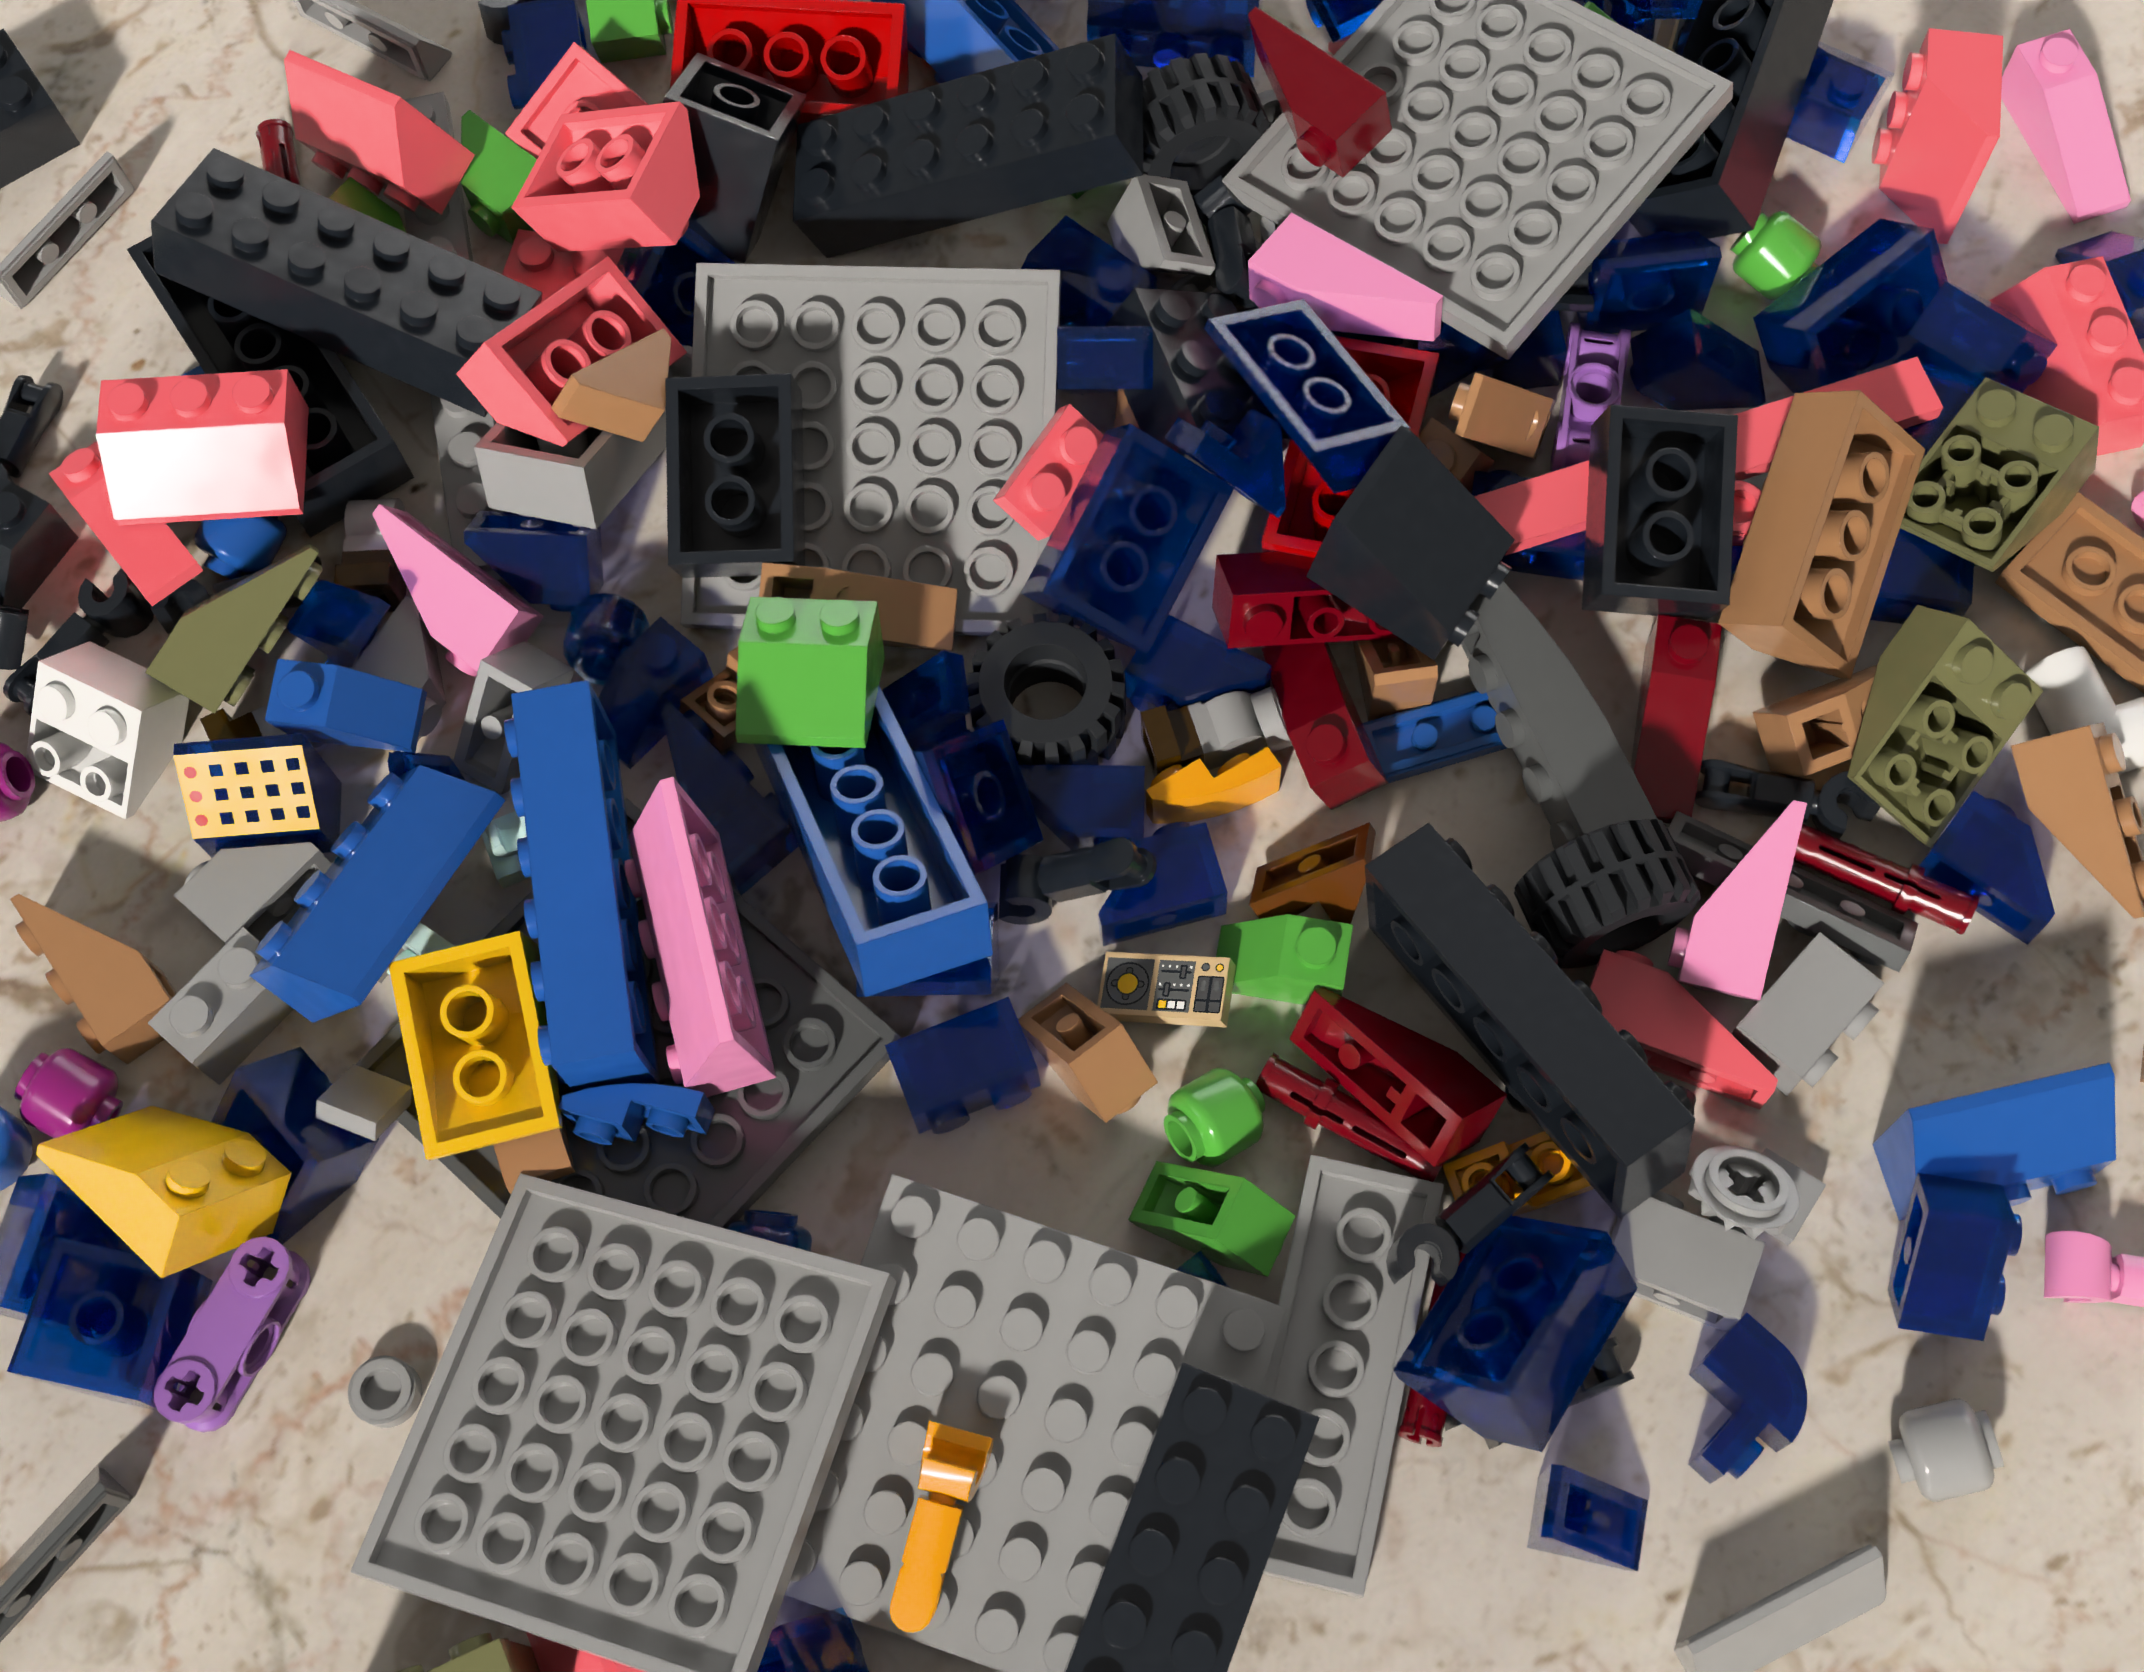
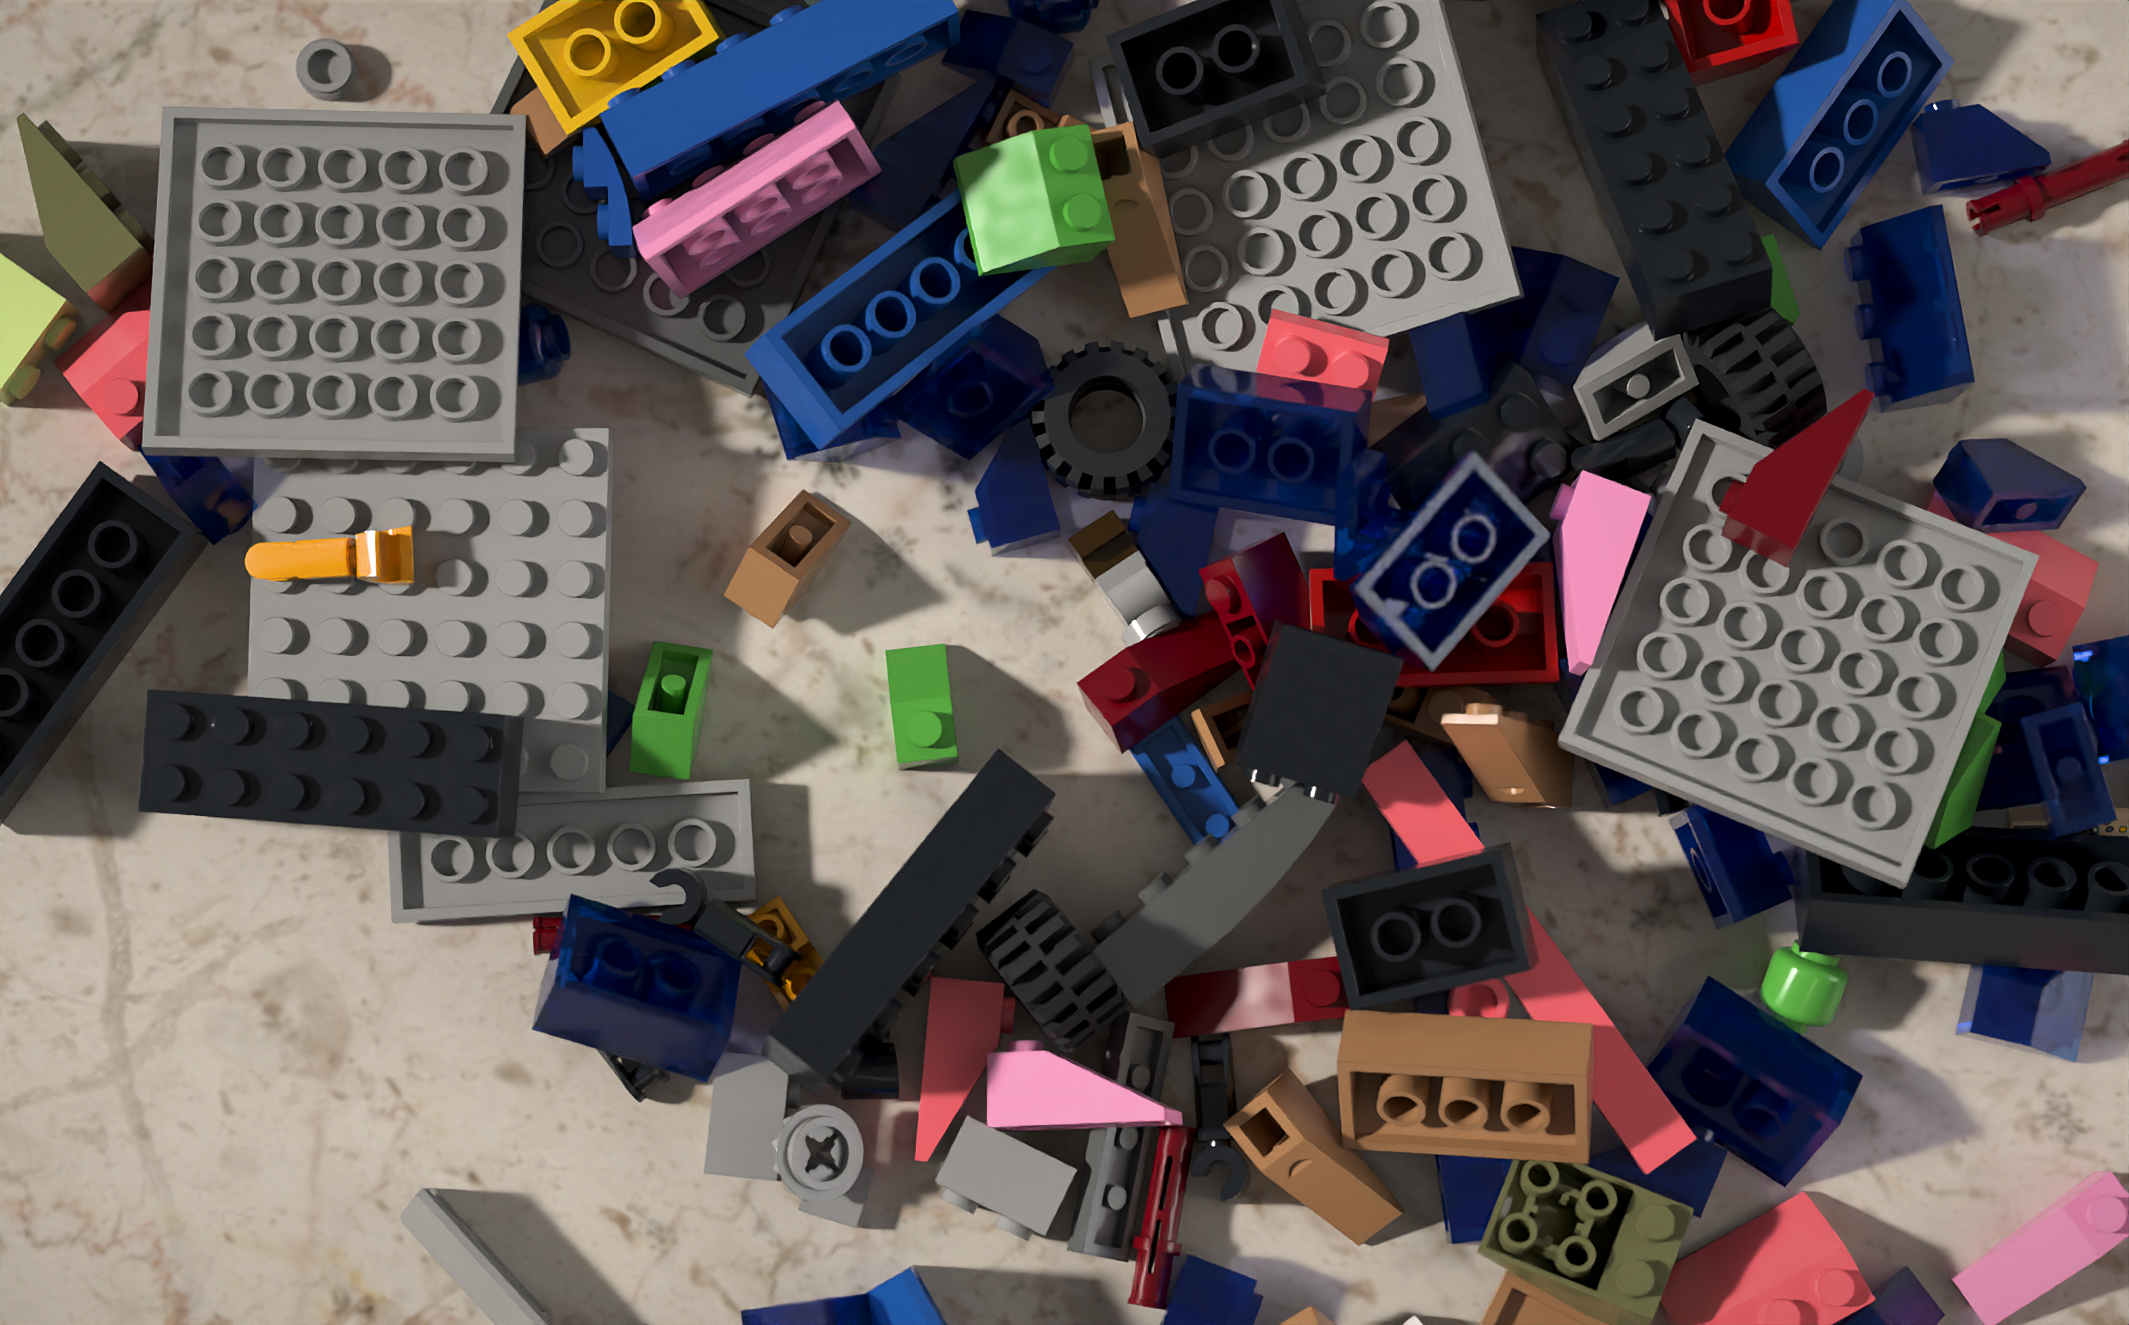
camera: 65 degrees right, 15 degrees up
(931, 699) = (1068, 311): clear blue slope -> none
(964, 1067) = (740, 457): clear blue brick -> none
(1033, 881) = (930, 471): black piece -> none
(1167, 988) = (864, 611): tile -> none
(1182, 892) = (964, 581): clear blue slope -> none
(1195, 795) = (1060, 580): light orange slope -> none
(1214, 1117) = (759, 687): bright green head -> none
(1322, 872) = (1001, 711): reddish brown slope -> none
(1341, 1114) = (795, 805): dark red pin -> none
(1401, 1076) = (839, 838): dark red slope -> none
(1587, 1519) = (507, 1091): clear blue slope -> none
(1592, 374) = (1621, 836): medium lavender piece -> none
(1696, 365) = (1650, 937): clear blue slope -> none
(1762, 1390) = (657, 1210): clear blue brick -> none
(1936, 719) = (1315, 1231): olive slope -> none
(1941, 127) = (1972, 1107): coral slope -> none
(1983, 338) = (1746, 1202): clear blue slope -> none

